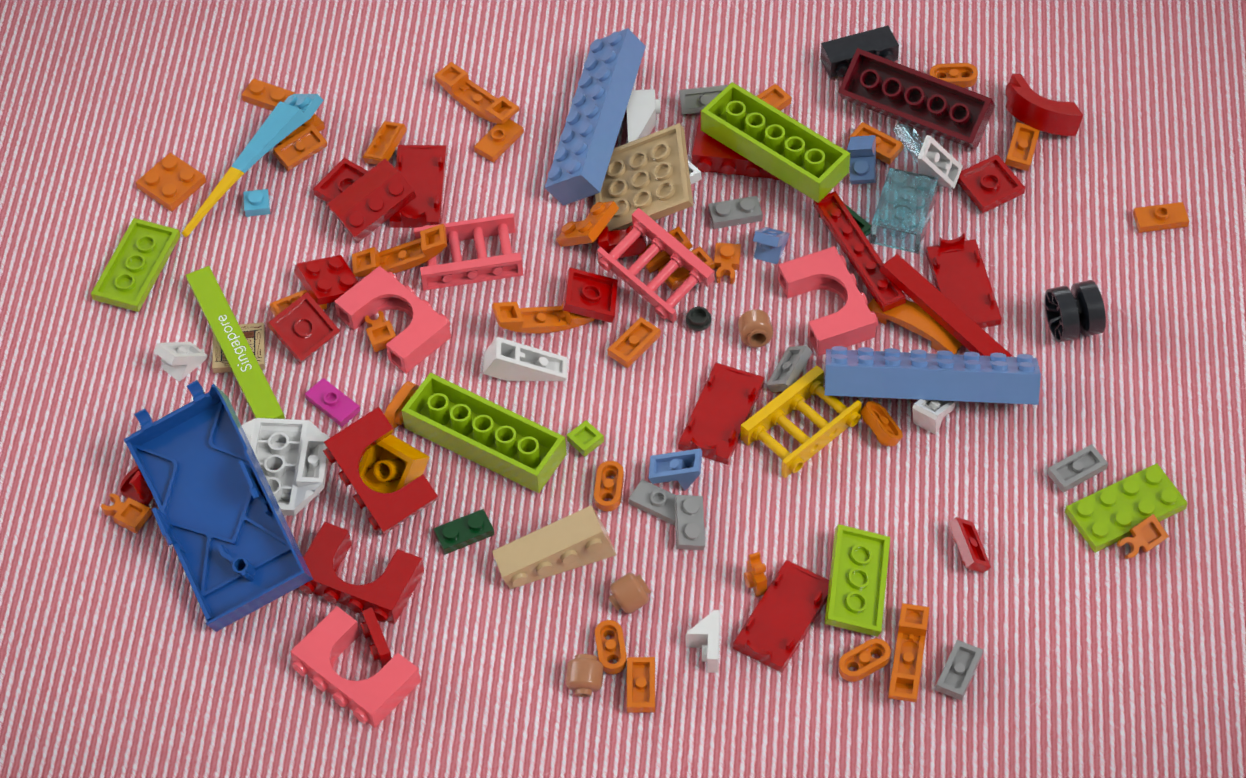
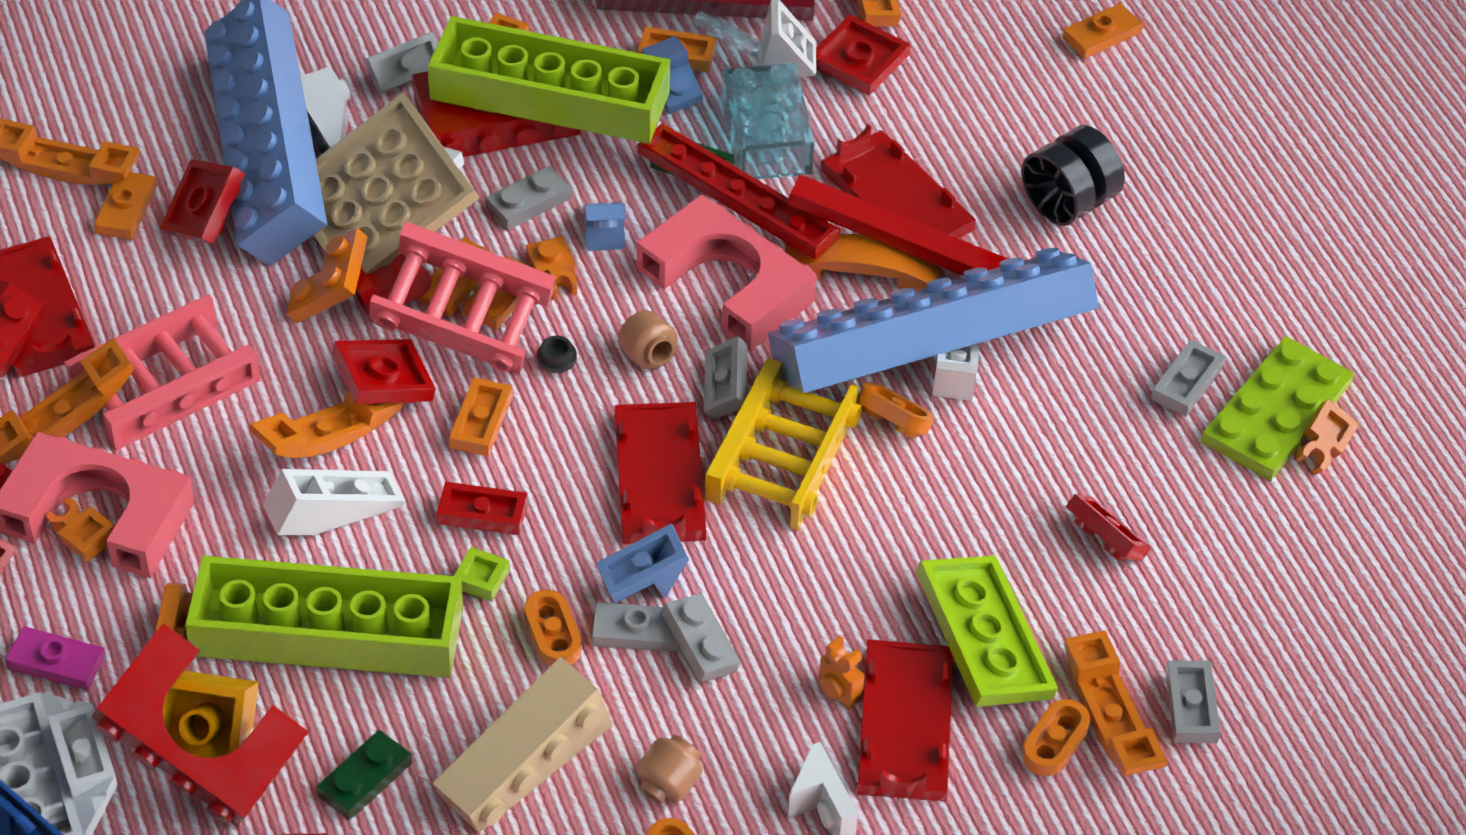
camera: 30 degrees left, 5 degrees down
(537, 153) = (202, 201): none -> red plate
(606, 398) = (482, 508): none -> red plate

